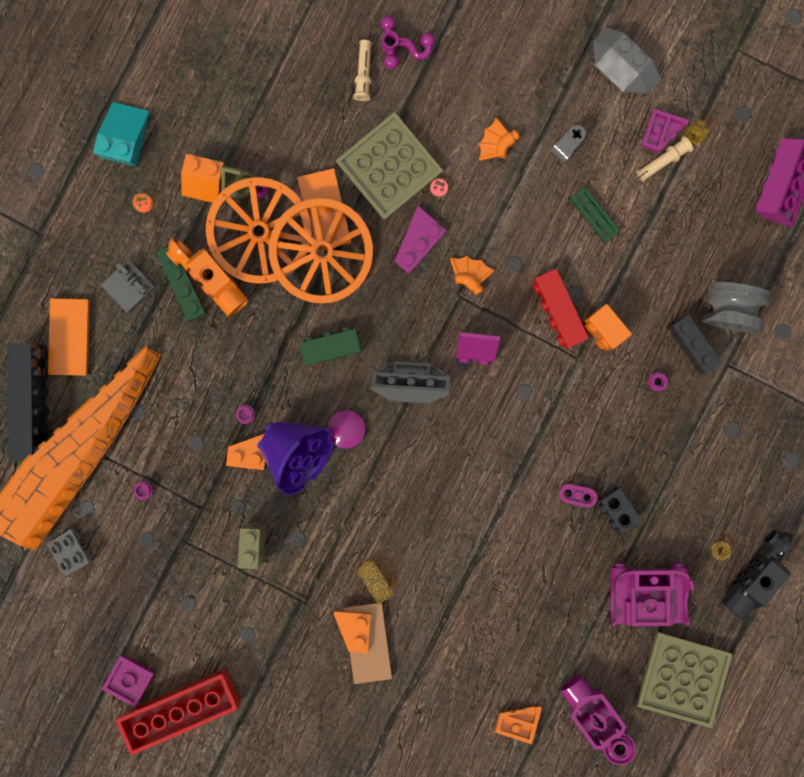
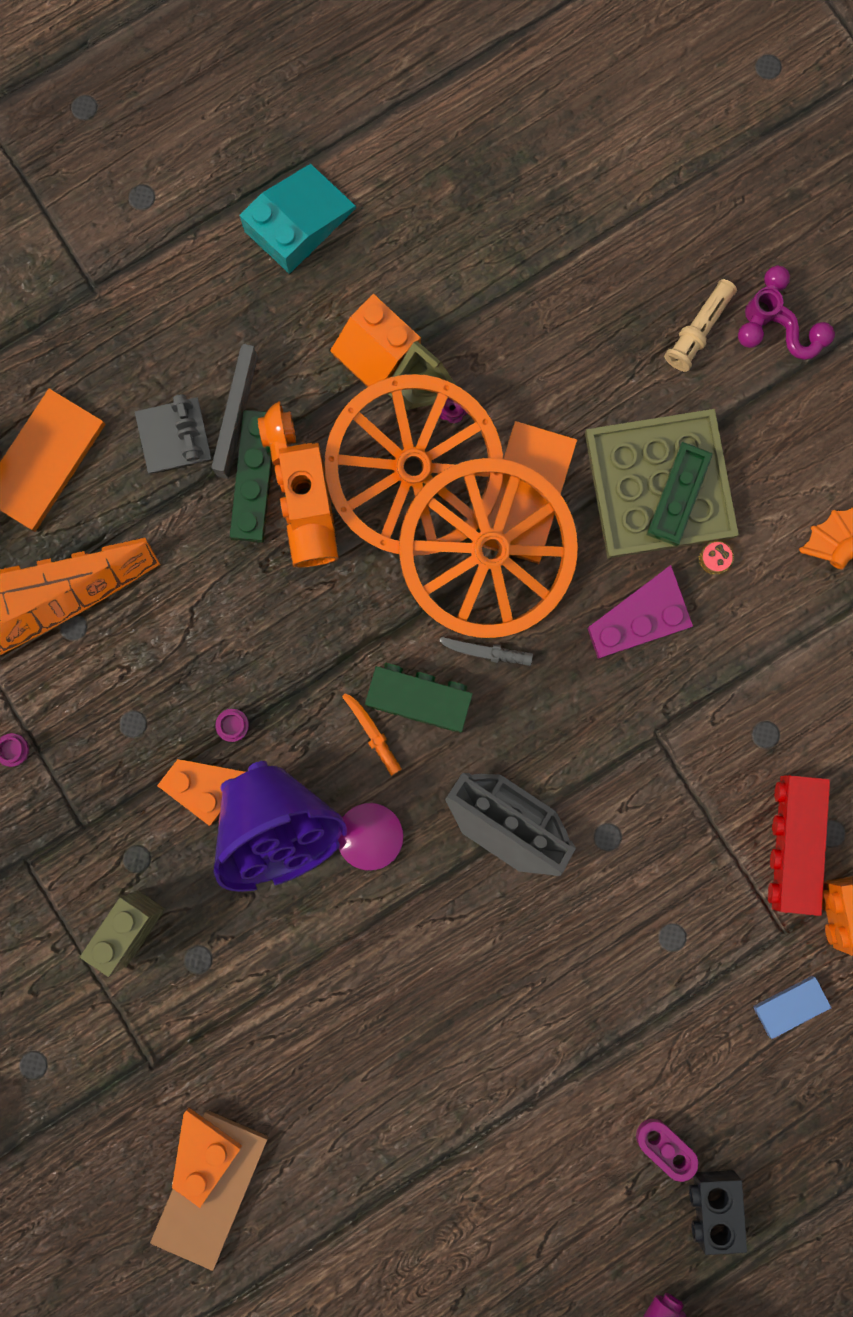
camera: 35 degrees right, 5 degrees down
(142, 202) = (266, 329): tile -> none
(150, 251) = (234, 411): none -> dark grey tile
(321, 378) = (377, 739): none -> orange piece
(353, 303) = (495, 653): none -> dark grey piece
(375, 582) = (276, 1100): clear yellow slope -> none
(401, 166) = (679, 494): none -> dark green tile
(470, 273) = (693, 710): orange arm -> none
(476, 347) = (641, 829): magenta slope -> none
(601, 391) = (792, 1007): none -> medium blue tile

